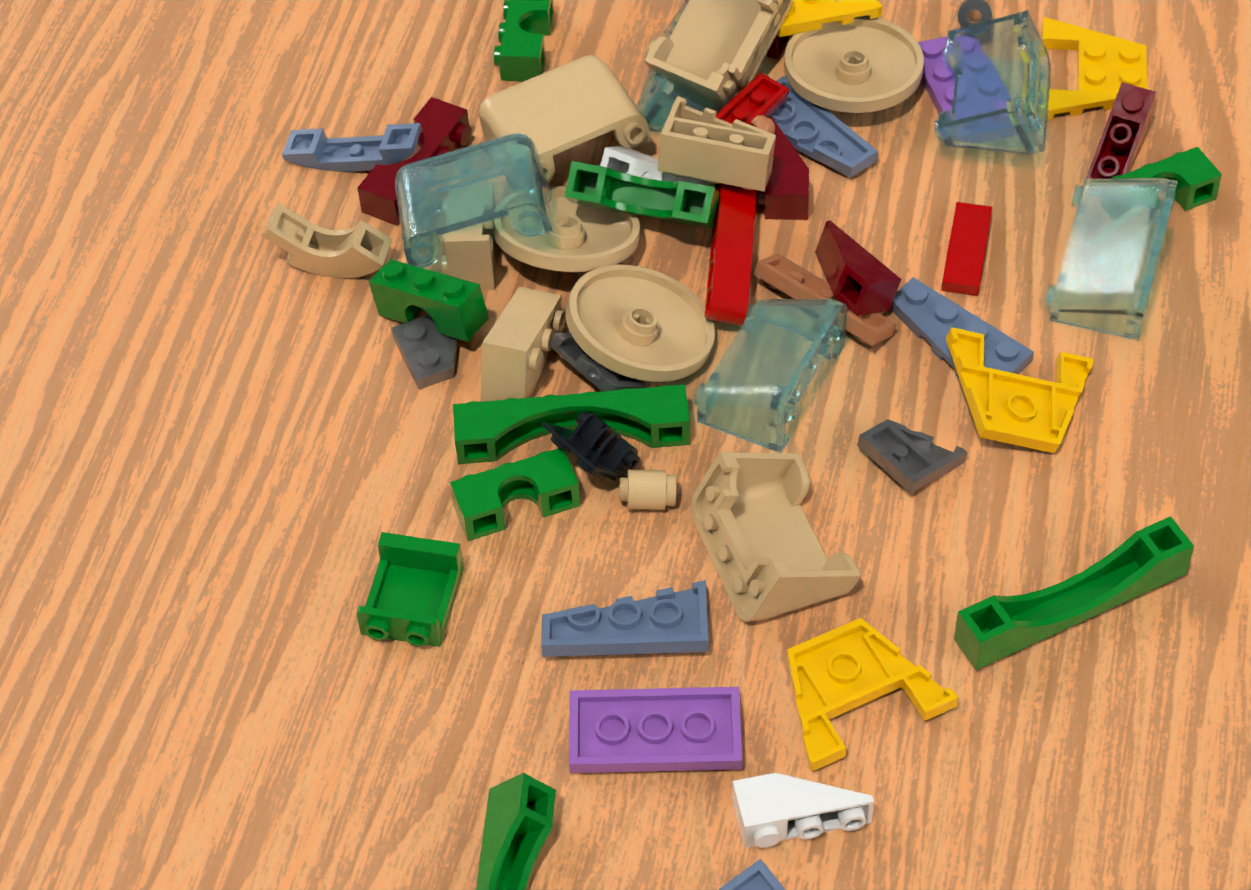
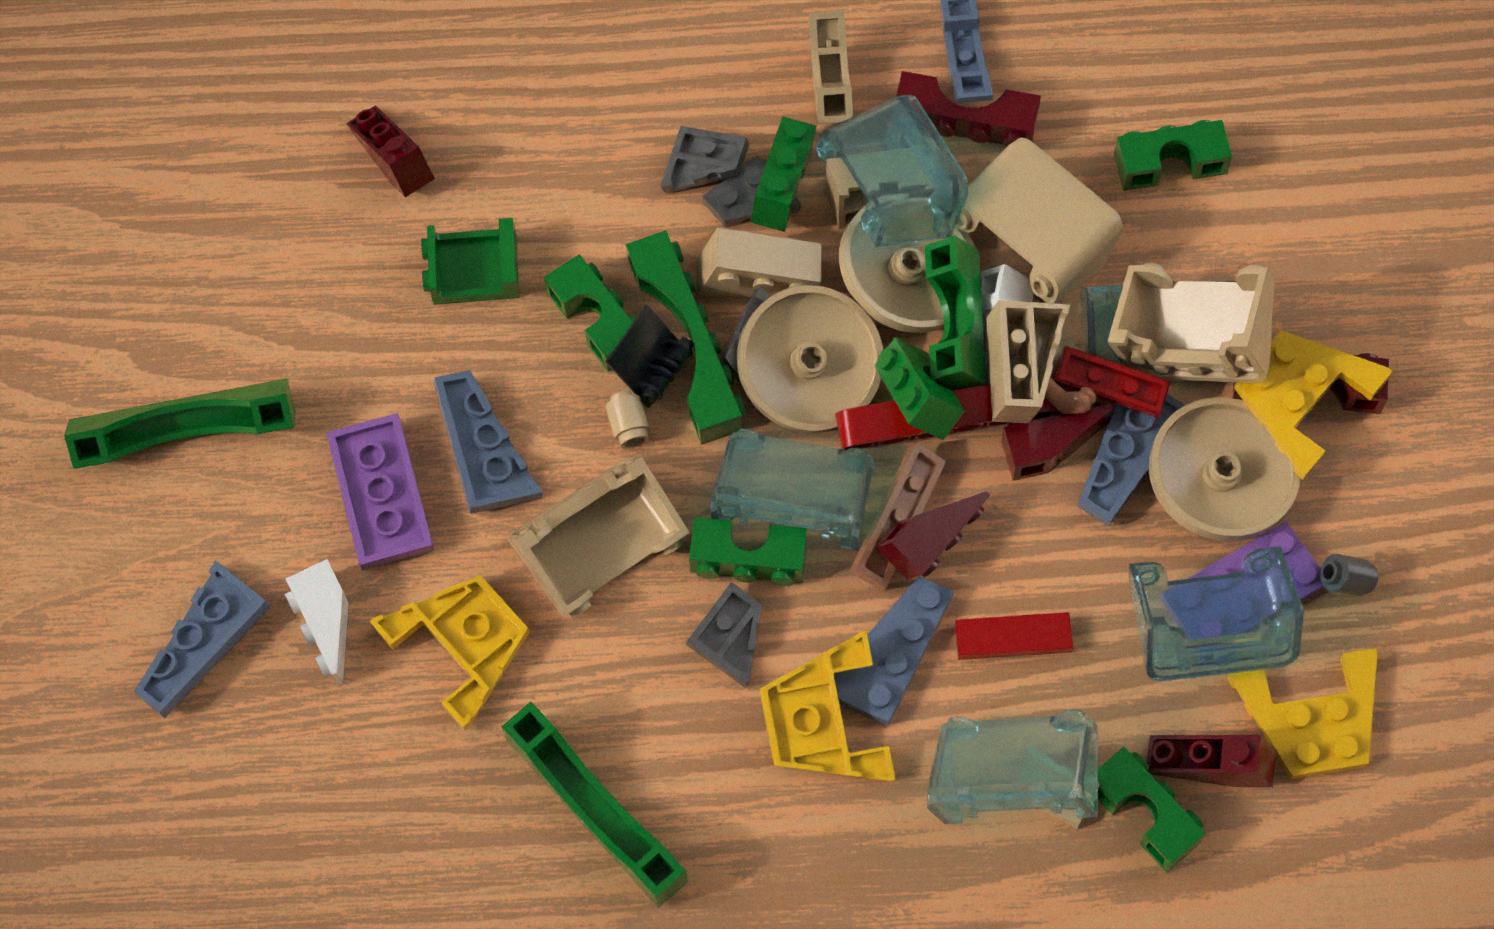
camera: 75 degrees right, 15 degrees up
(239, 640) = (391, 150): none -> dark red slope
(374, 368) = (703, 158): none -> flat silver wing
(711, 234) = (919, 398): none -> green arch
(838, 394) = (777, 560): none -> green arch

